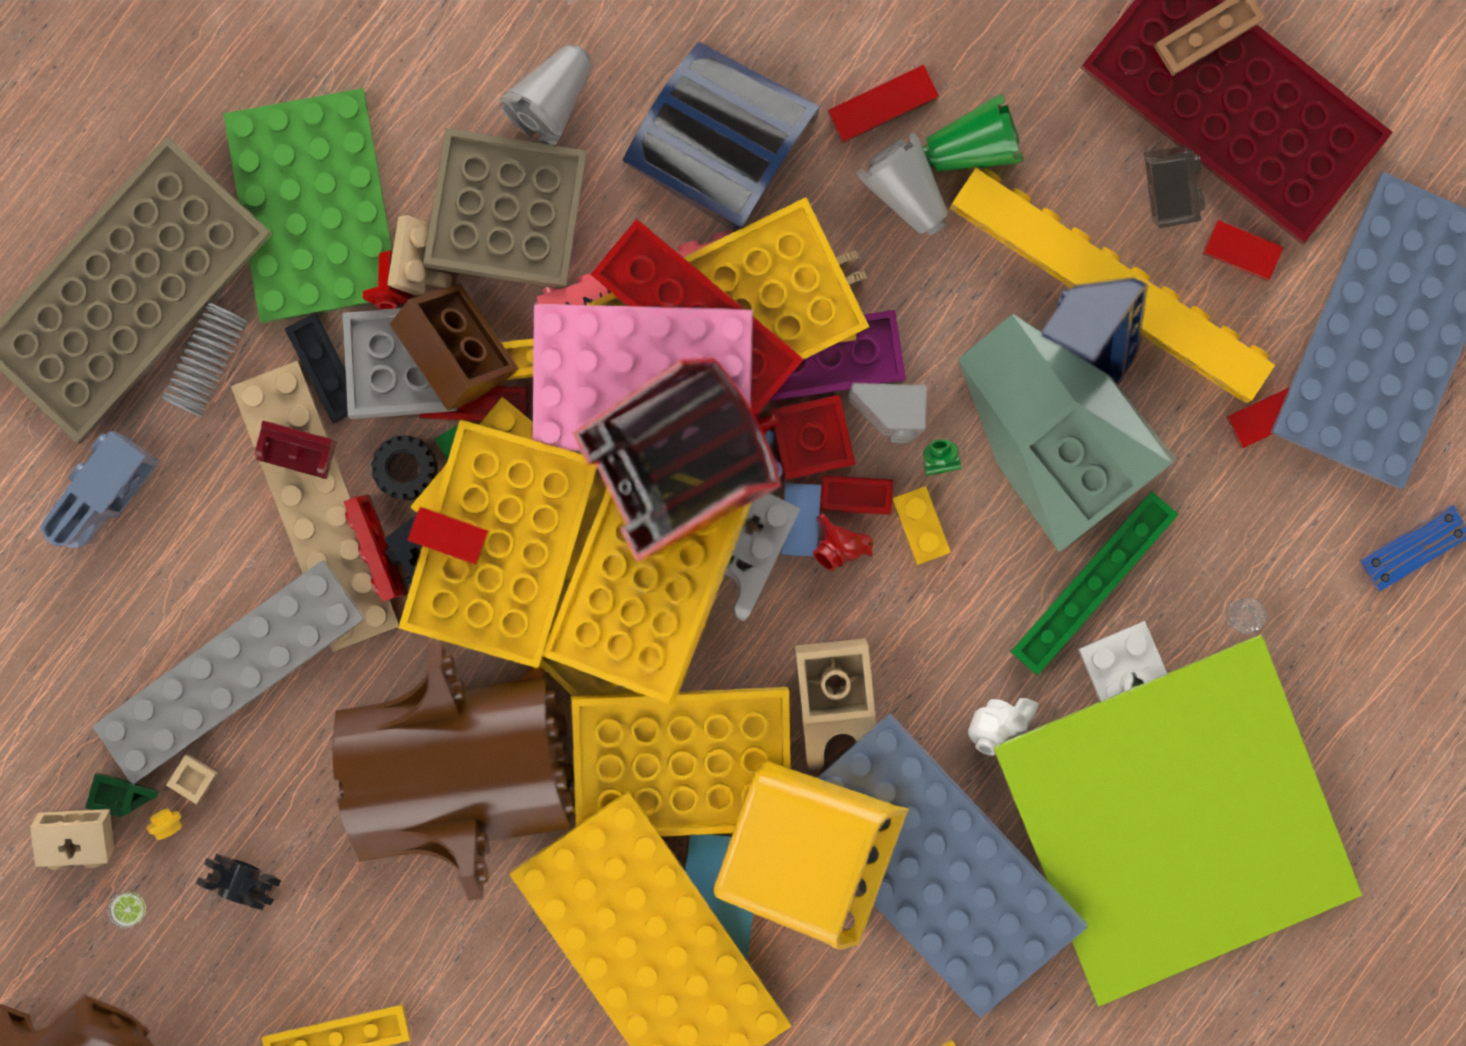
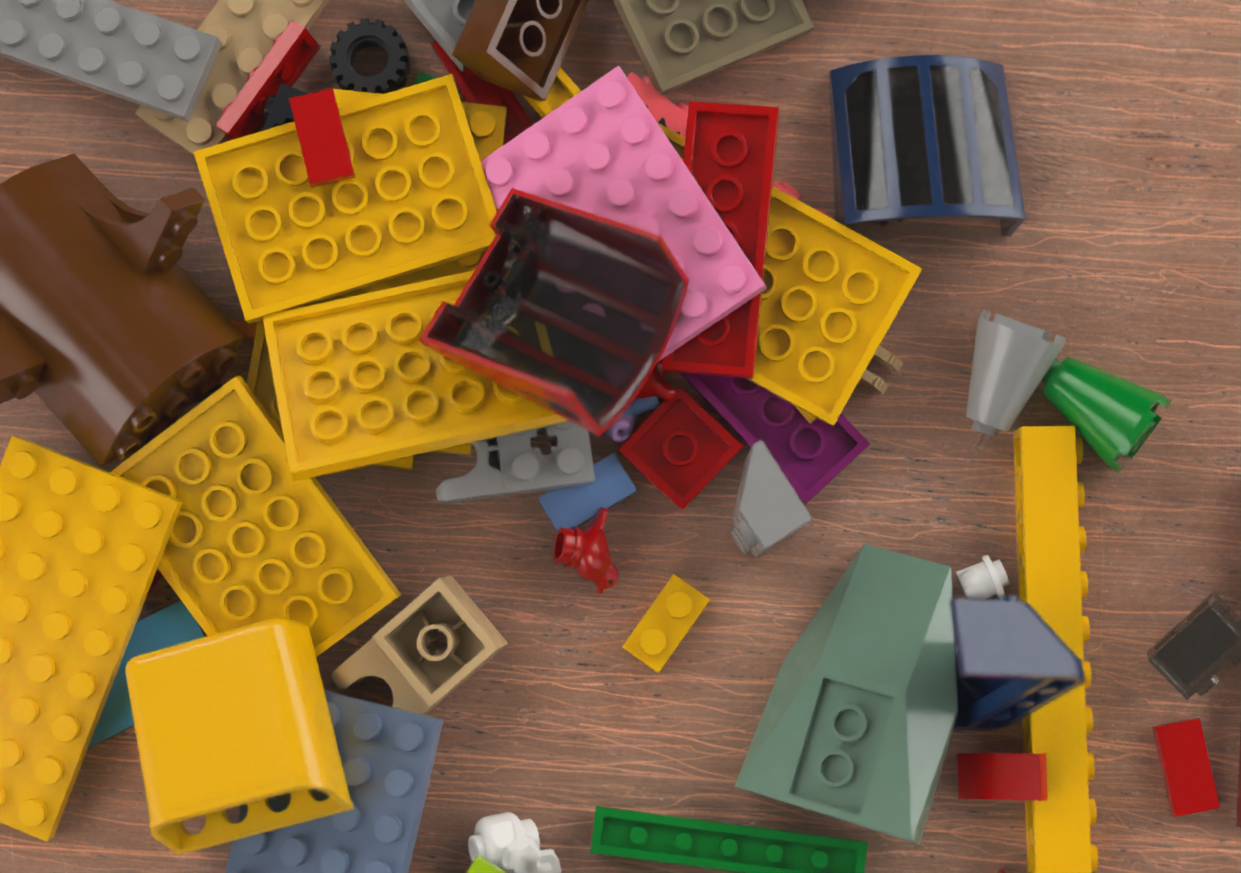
camera: 55 degrees right, 5 degrees down
(856, 495) = (651, 534): red tile -> none
(883, 104) = (1071, 291): red tile -> none
(941, 457) = (750, 596): green plate -> none
(1034, 297) = (983, 579): none -> white hose
(1169, 374) = (1002, 776): none -> red tile

